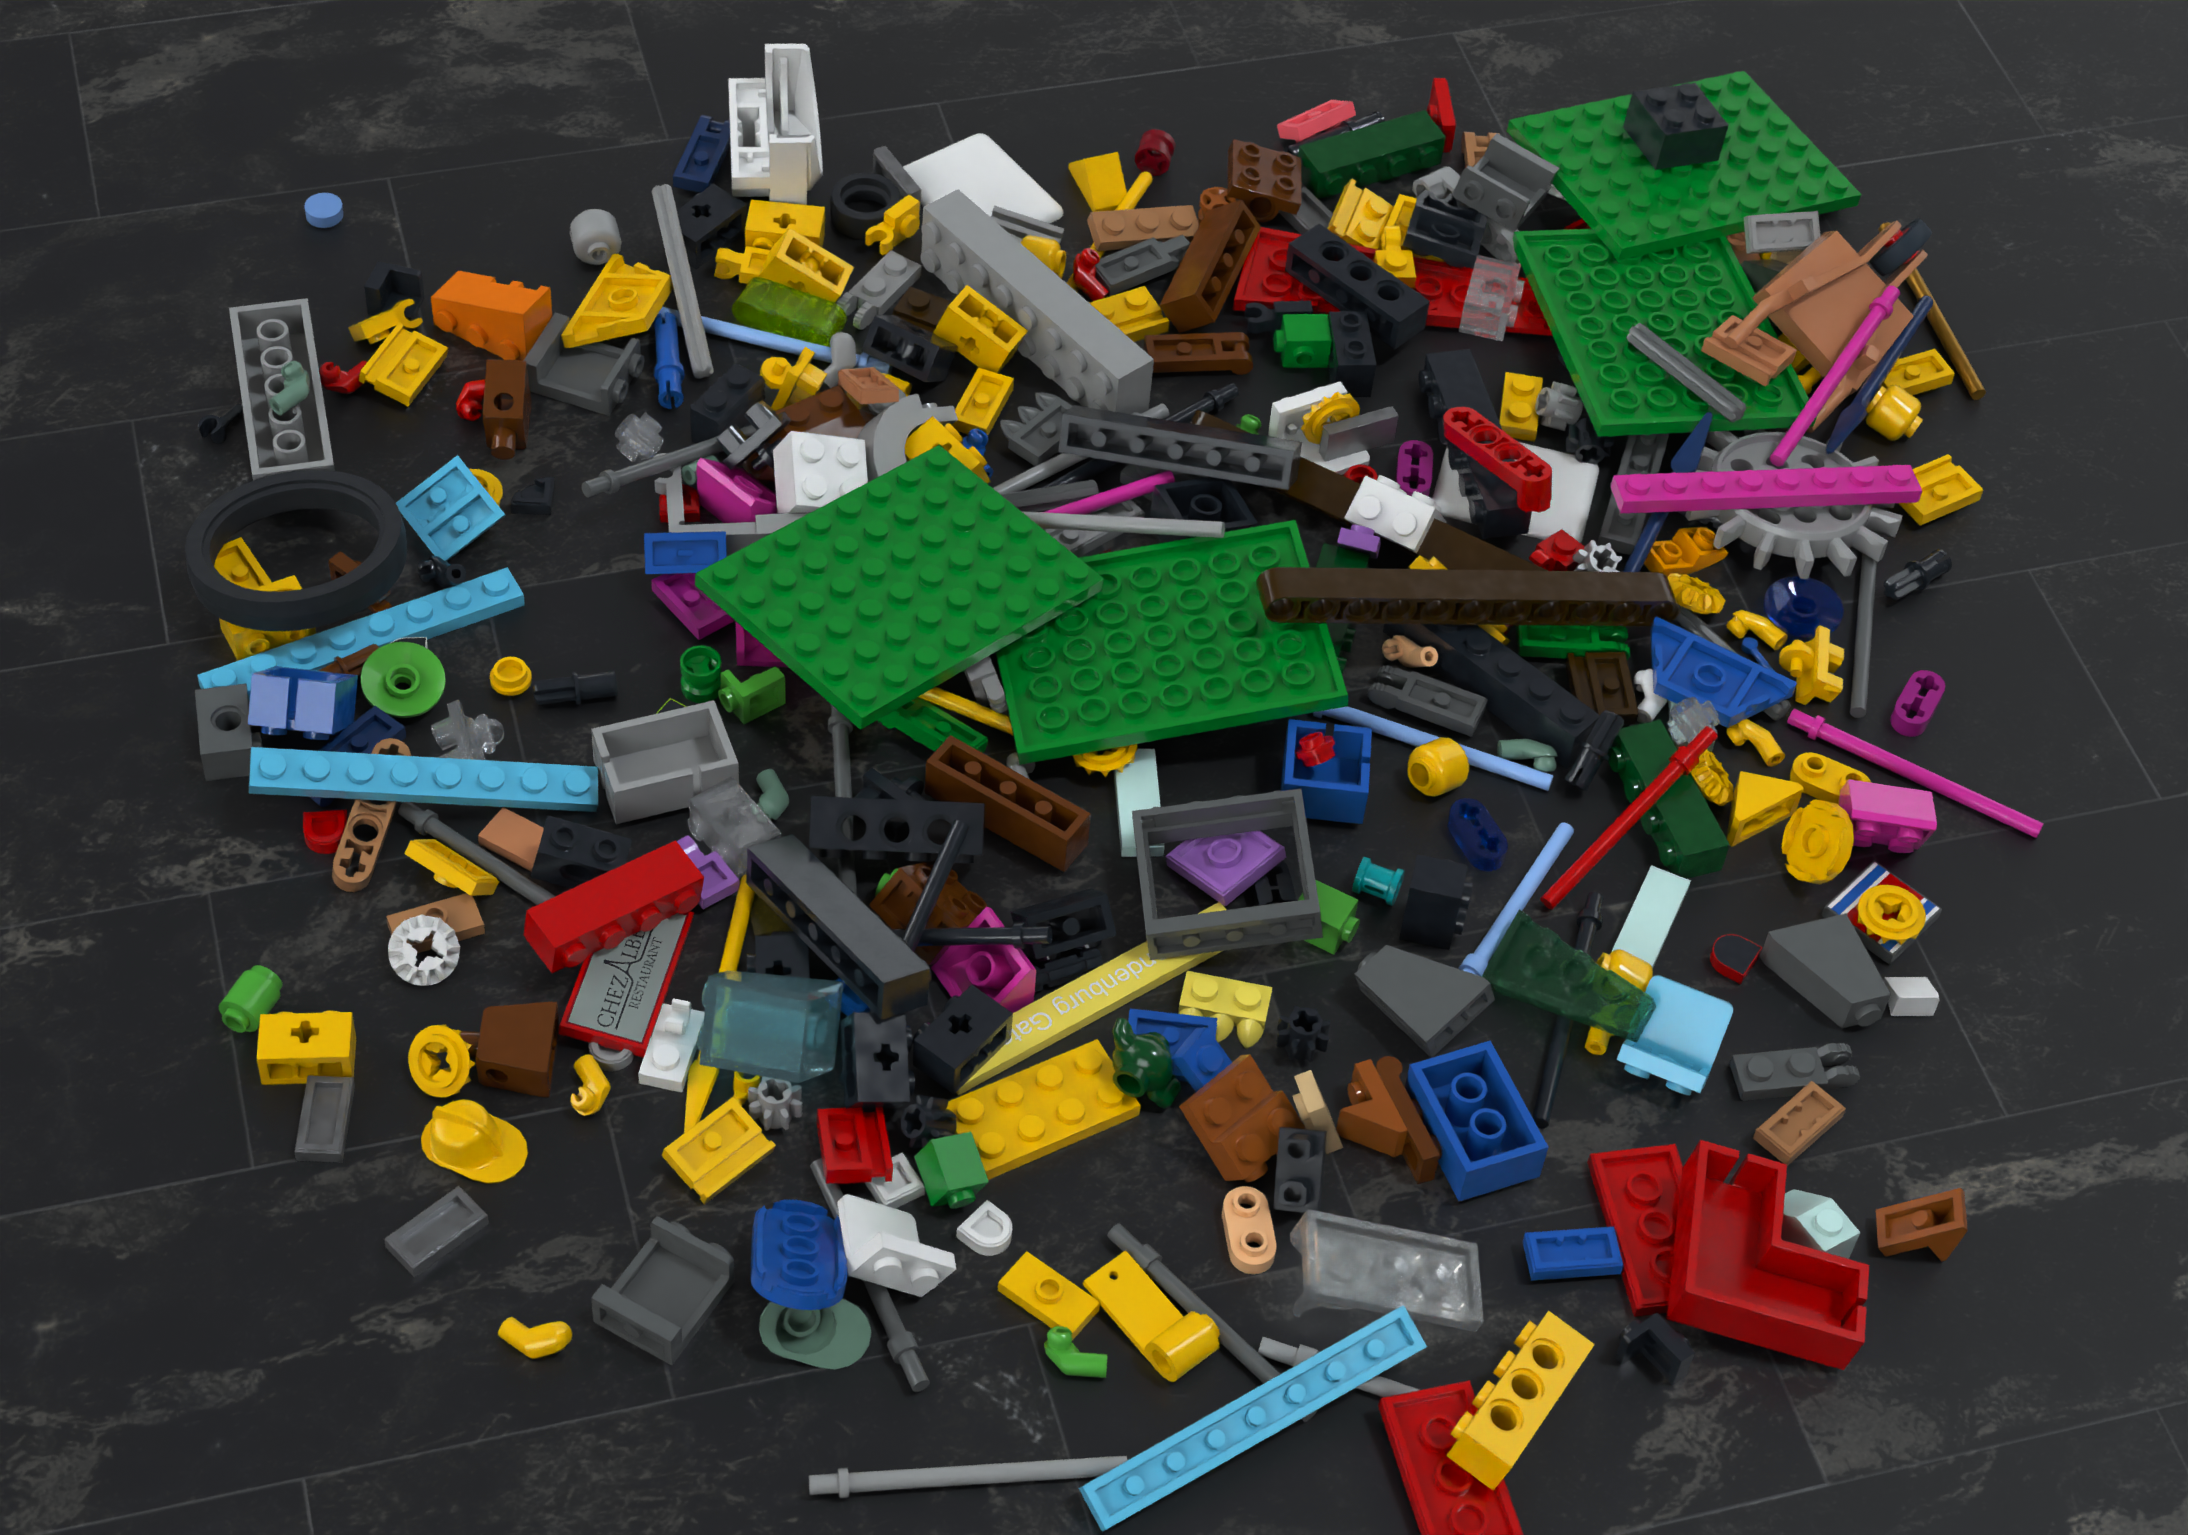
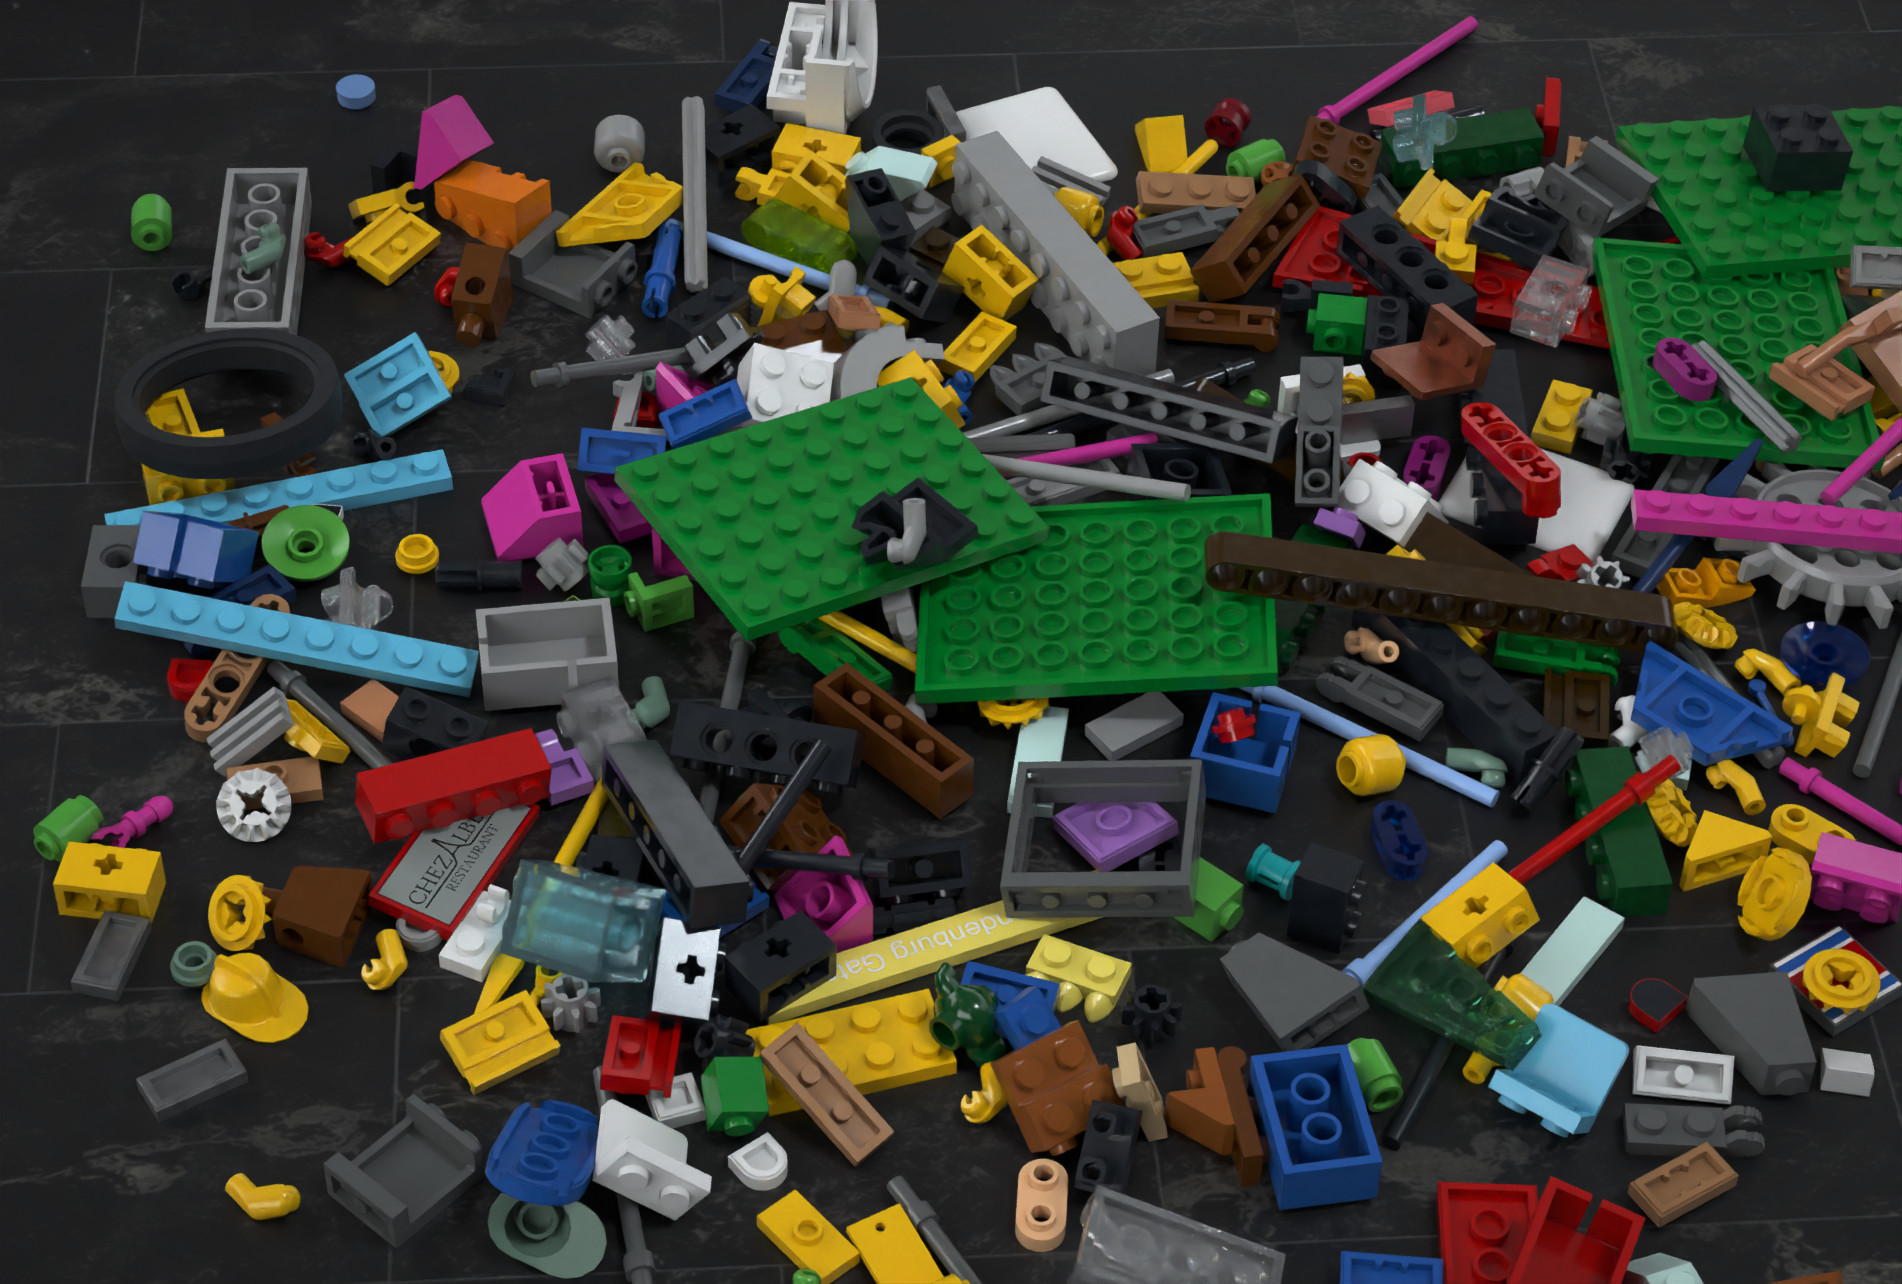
camera: 15 degrees right, 5 degrees down
(161, 369) = (151, 222): none -> bright green brick
(312, 984) = (134, 823): none -> dark pink piece
(400, 872) = (250, 731): none -> light grey tile
(405, 1107) = (193, 964): none -> sand green plate
(438, 255) = (447, 139): none -> dark pink slope
(613, 619) = (532, 508): none -> dark pink slope
(653, 669) = (562, 564): none -> light grey gear
(758, 507) = (705, 415): none -> blue plate
(863, 241) = (903, 169): none -> light aqua slope
(863, 286) = (876, 214): none -> black slope
(989, 599) = (883, 519): none -> black plate
(998, 605) = (914, 532): none -> light grey arm
(1035, 1157) = (826, 1094): none -> medium nougat plate
(1178, 1137) = (987, 1102): none -> yellow arm
(1189, 186) = (1252, 158): none -> bright green brick
(1215, 757) = (1134, 725): none -> light grey tile
(1263, 115) = (1398, 71): none -> dark pink bar
(1264, 207) = (1327, 187): none -> black beam
(1325, 455) = (1319, 432): none -> dark grey slope
(1341, 145) = (1419, 132): none -> clear light blue hips
(1413, 369) = (1444, 362): none -> copper bracket
(1516, 1059) = (1376, 1074): none -> bright green brick
(1574, 898) = (1483, 915): none -> yellow brick
(1628, 352) = (1684, 369): none -> magenta beam
(1774, 1021) = (1682, 1075): none -> white slope

